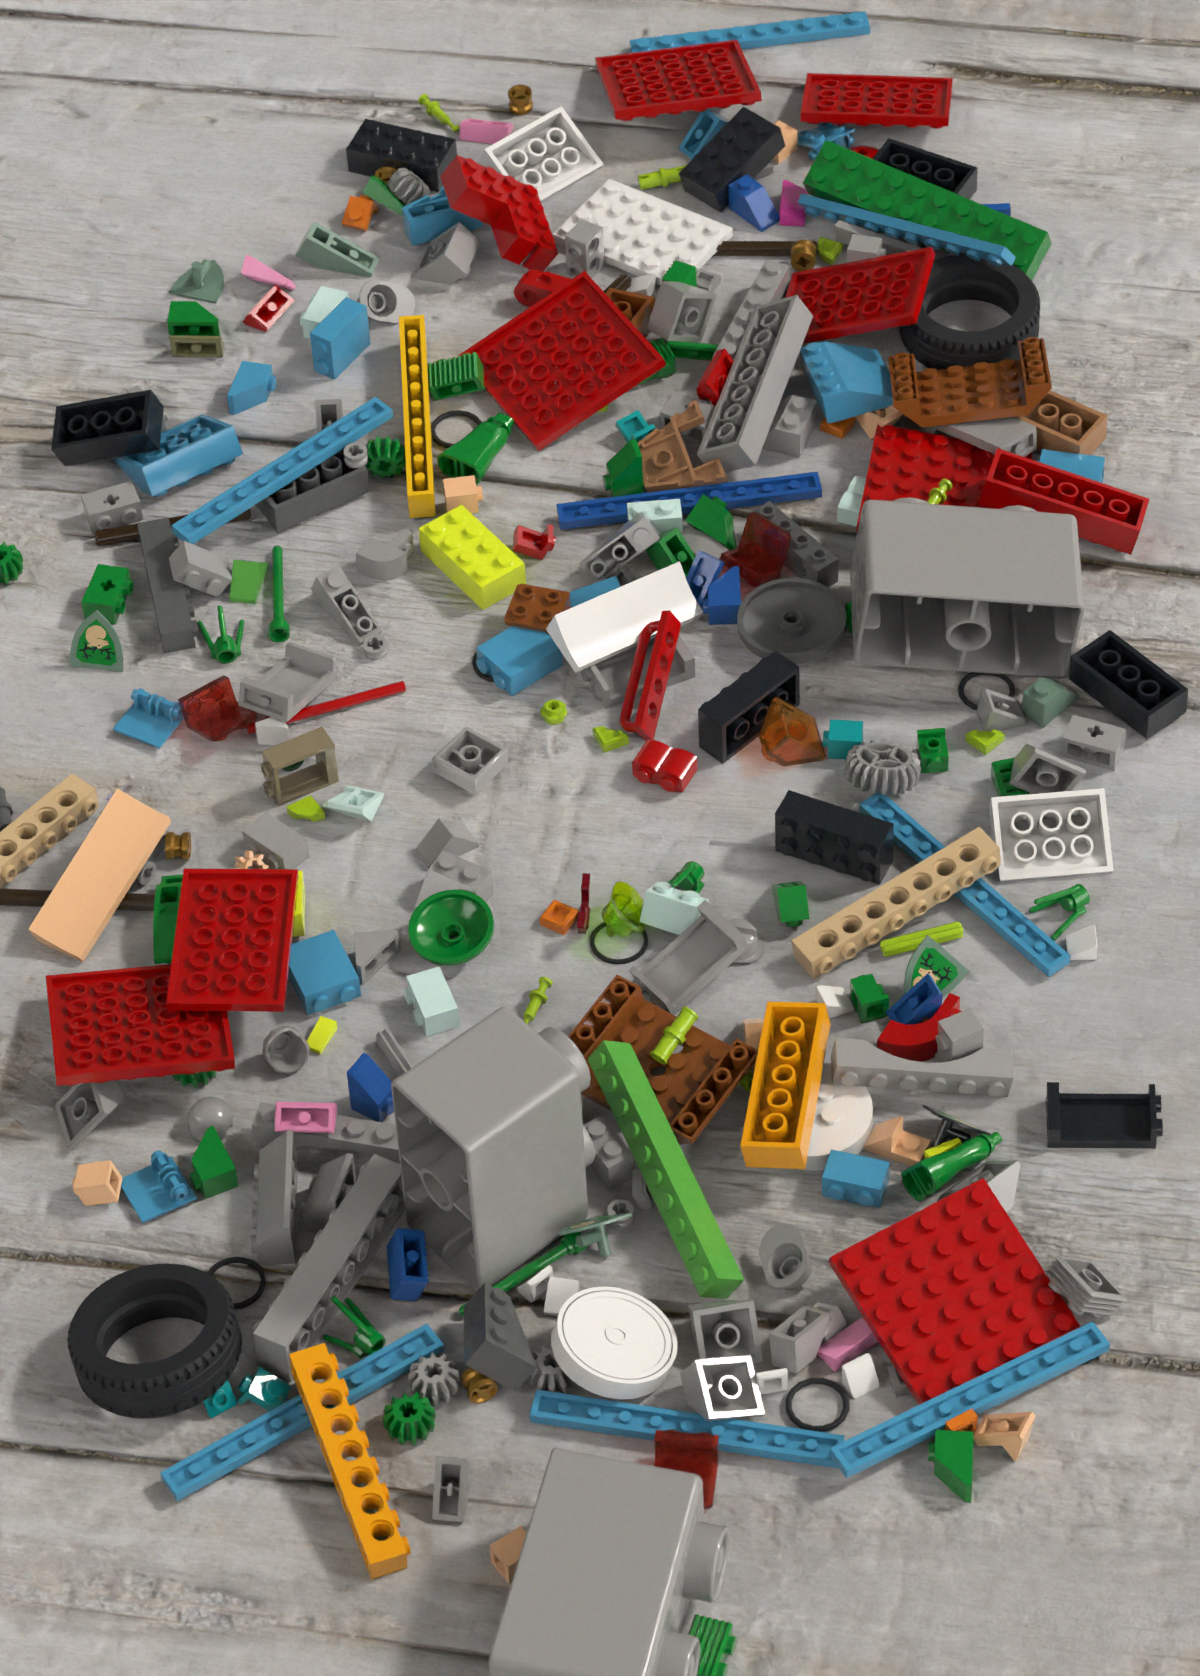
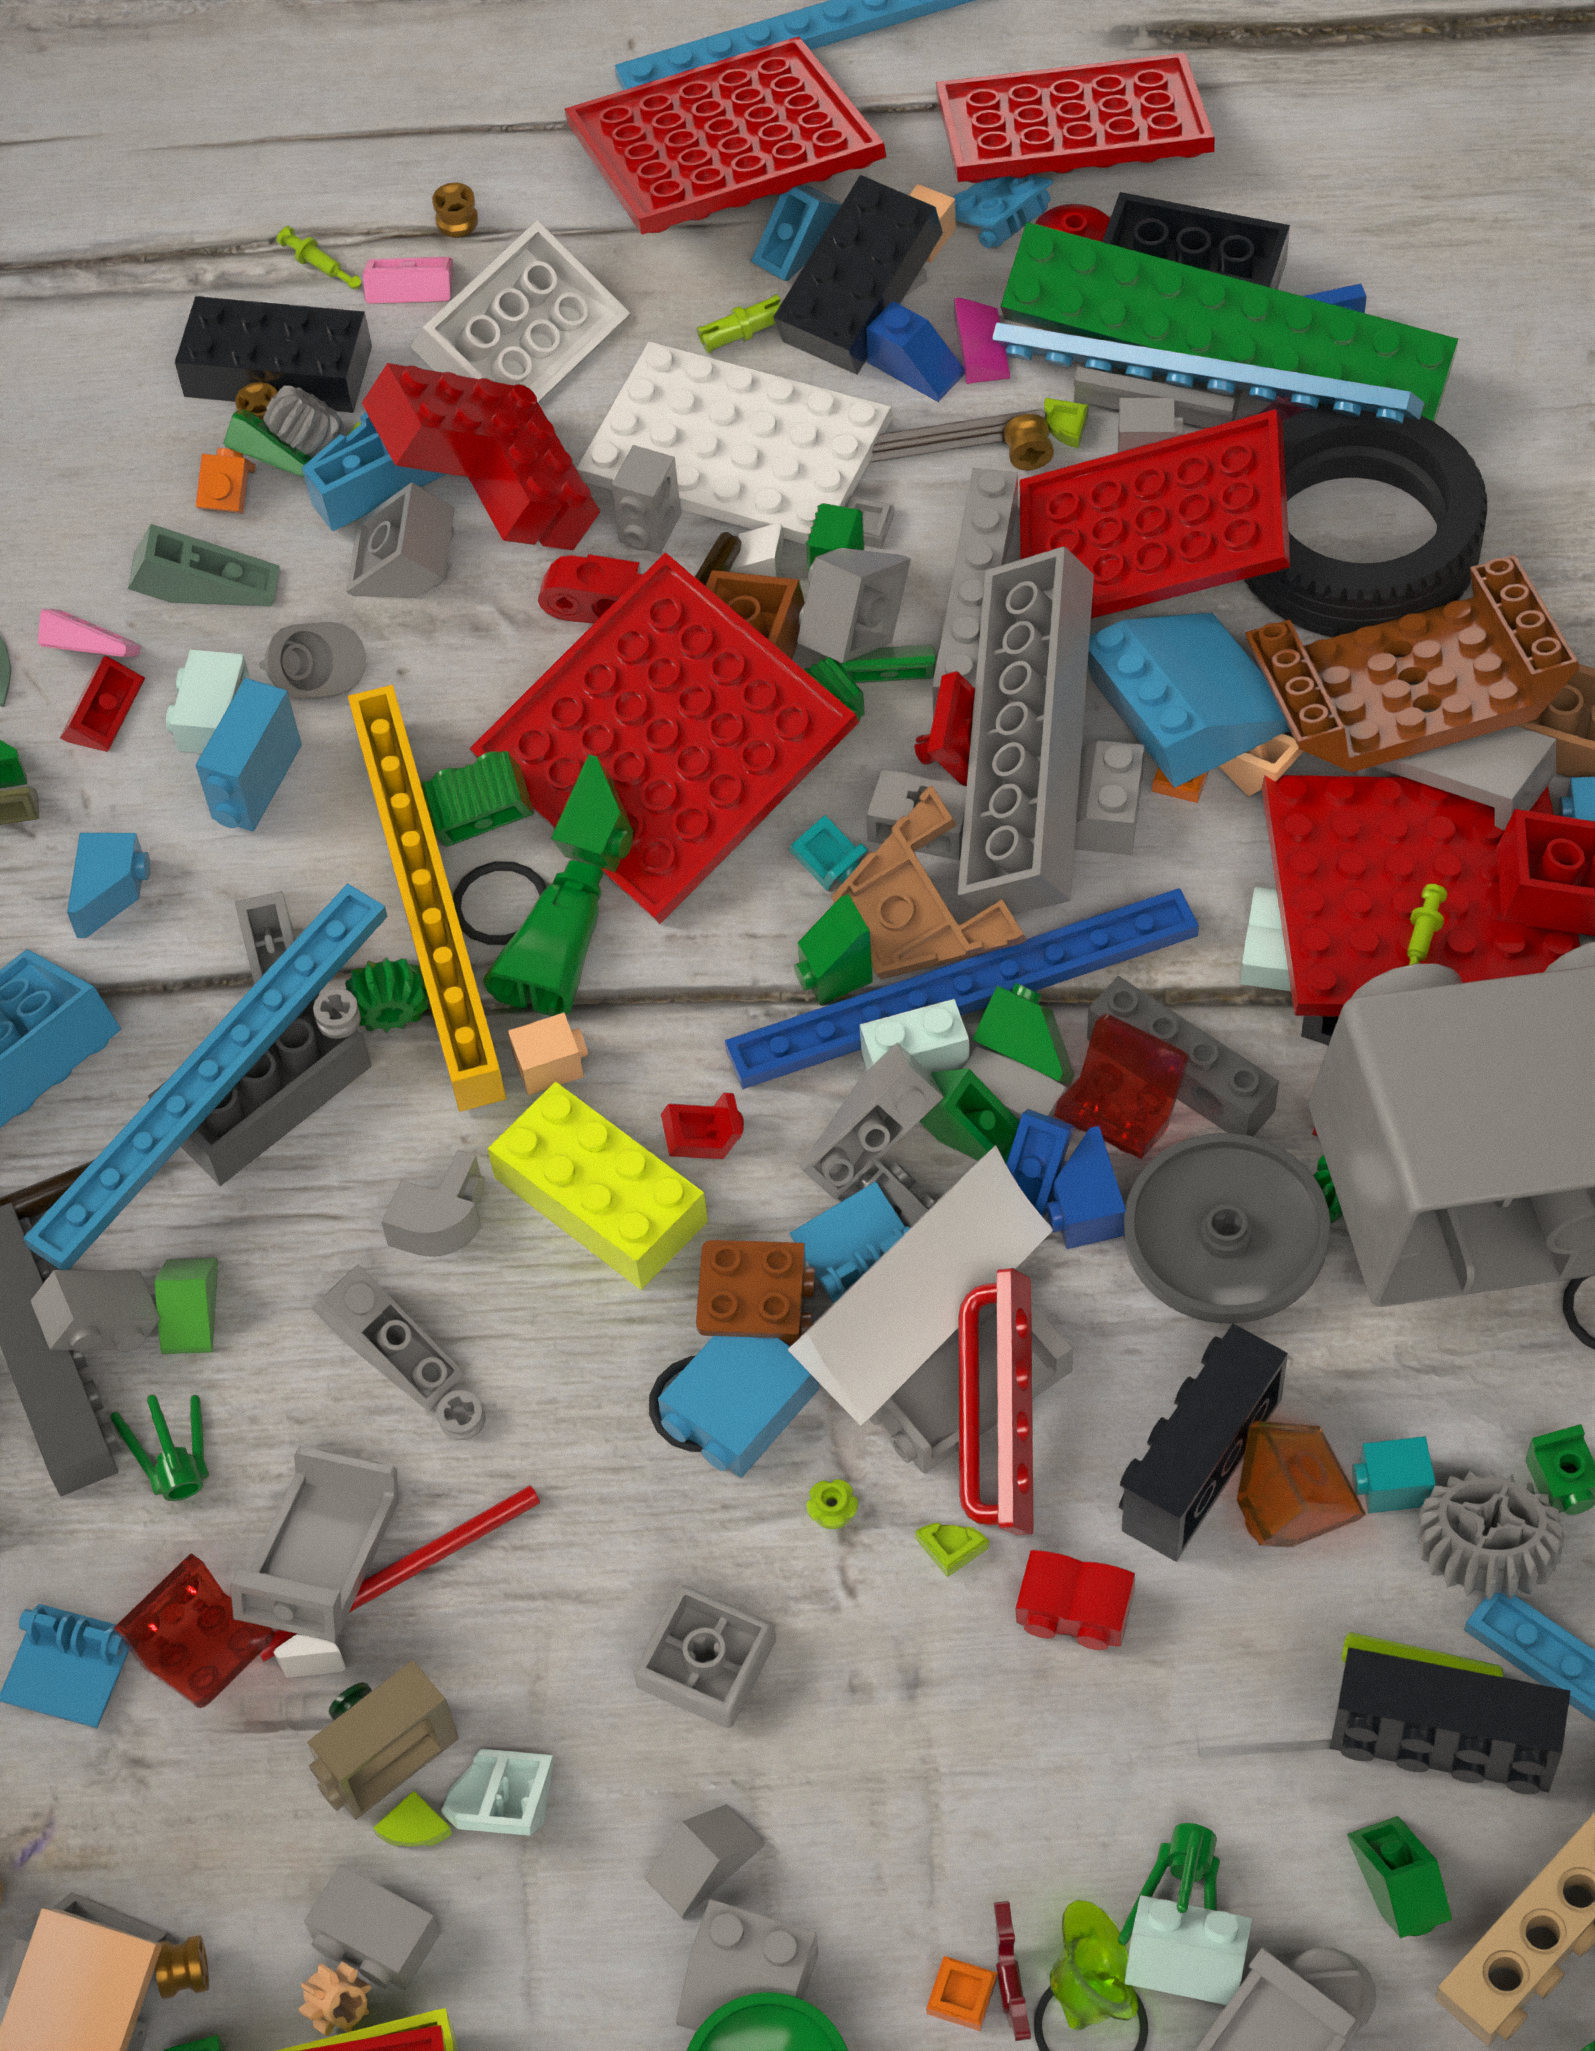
camera: 10 degrees left, 10 degrees up
(278, 628) = (269, 1407): green piece -> none
(513, 393) = (594, 820): none -> green slope

